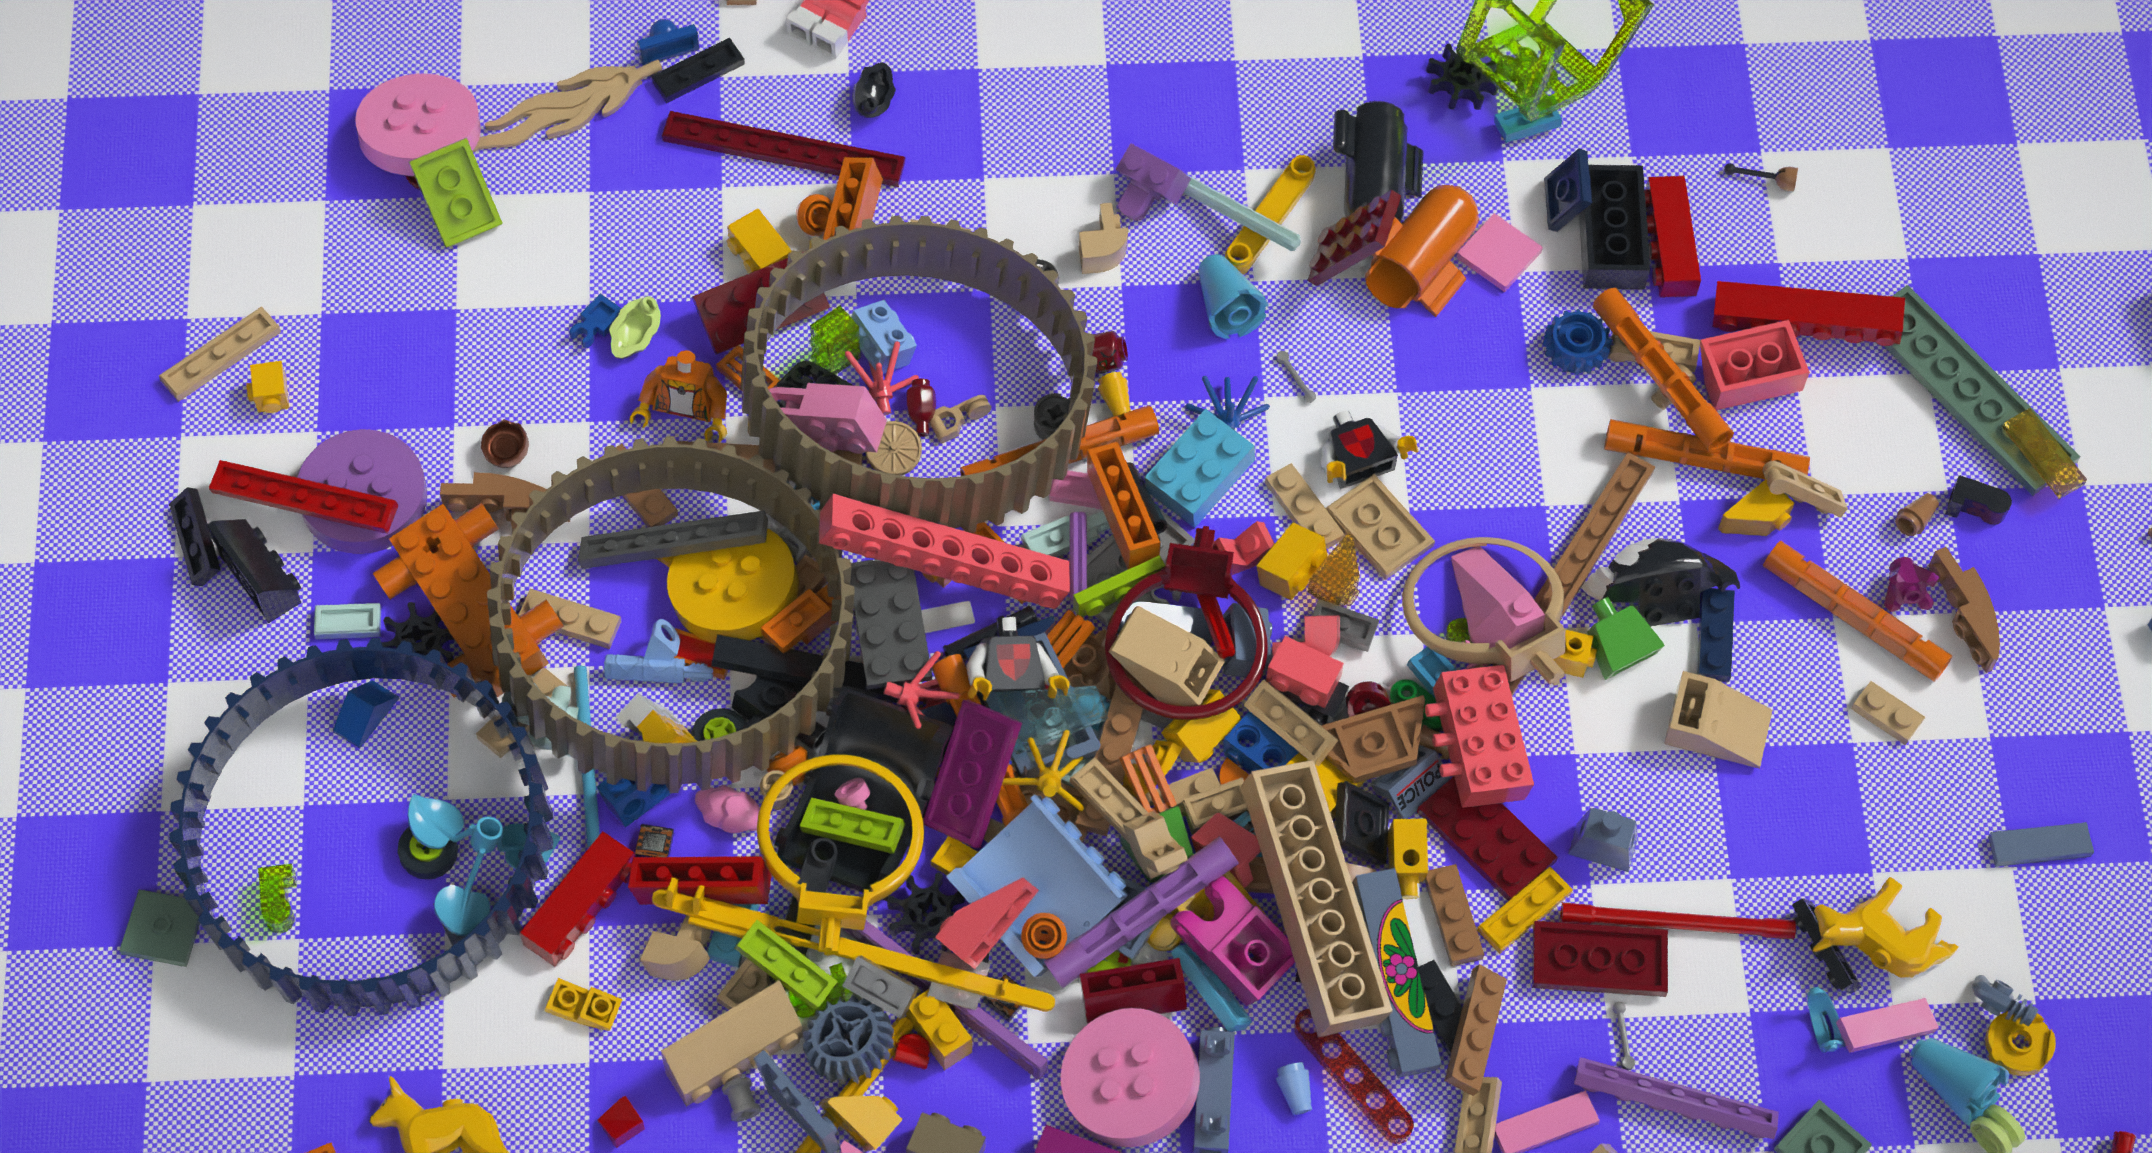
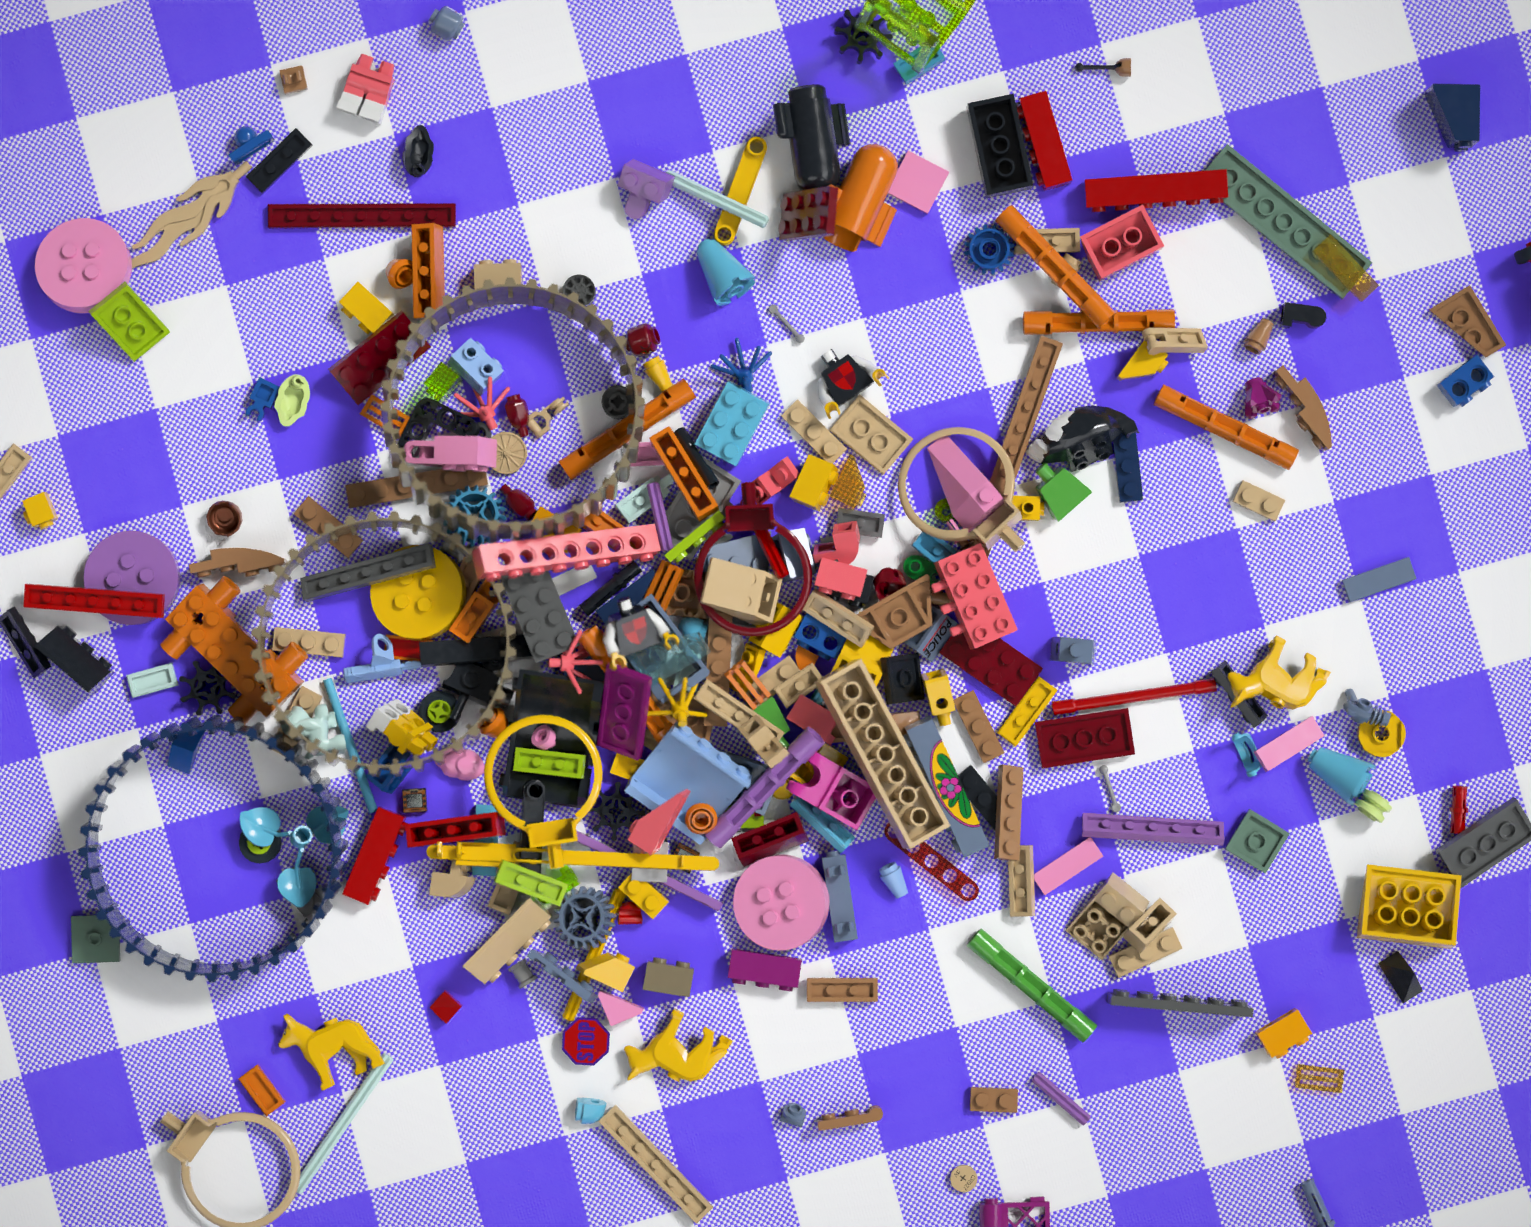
camera: 10 degrees left, 25 degrees up
(274, 896) = (165, 901): clear neon green leg -> none
(583, 1006) = (398, 929): yellow slope -> none
(685, 390) = (344, 445): orange torso -> none
(766, 783) = (482, 745): tan cone -> none
(880, 986) = (598, 881): flat silver plate -> none
(1106, 247) = (625, 249): tan brick -> none
(1567, 190) = (960, 123): dark blue tile -> none
(1717, 721) = (1139, 539): tan slope -> none

